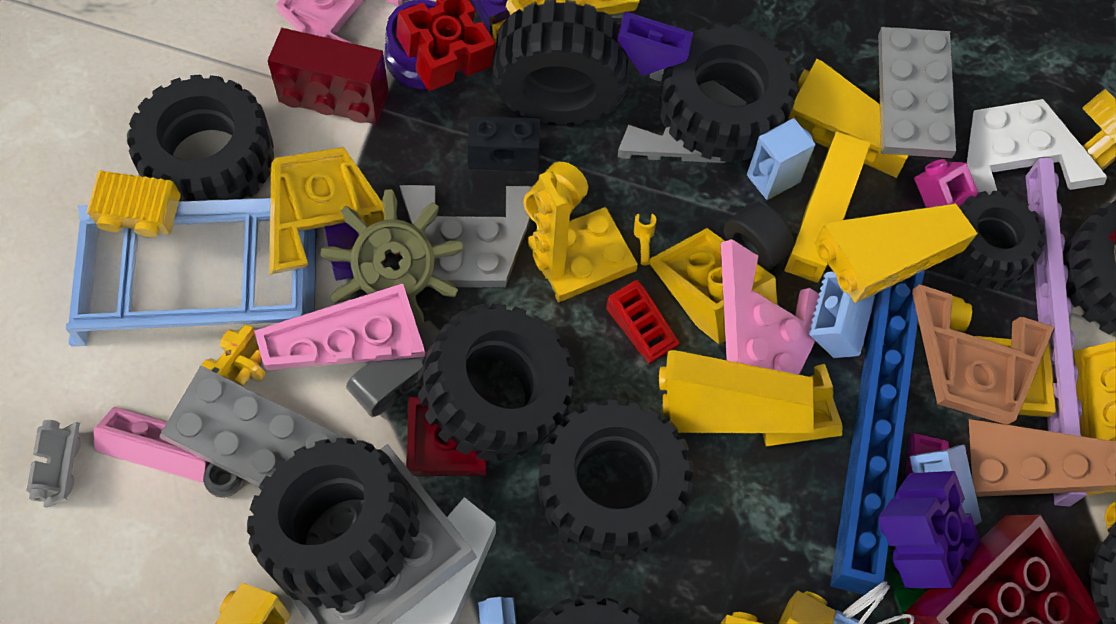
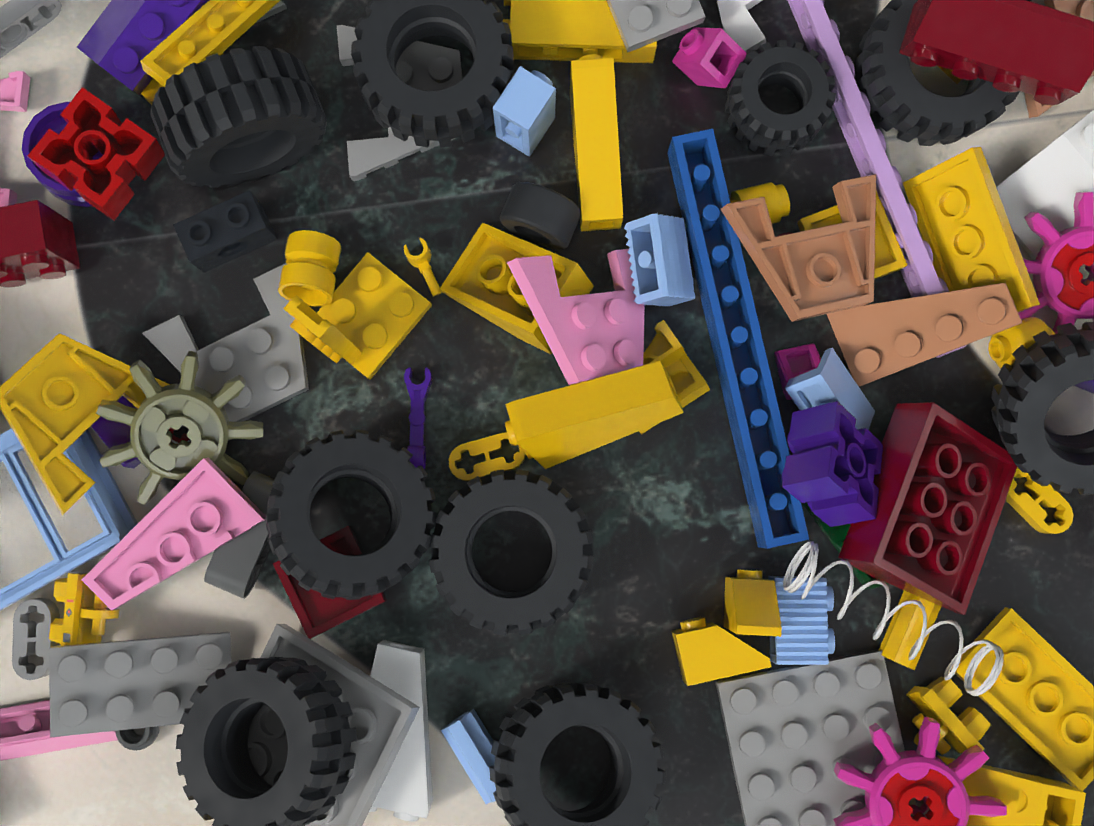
camera: 20 degrees left, 20 degrees up
(182, 366) = (32, 637): none -> light grey beam
(593, 329) = (417, 417): none -> dark purple piece
(626, 391) = (481, 447): none -> yellow beam
(644, 303) = (432, 349): red slope -> none
(653, 43) = (327, 53): dark purple slope -> none
(891, 247) = (680, 177): yellow slope -> none

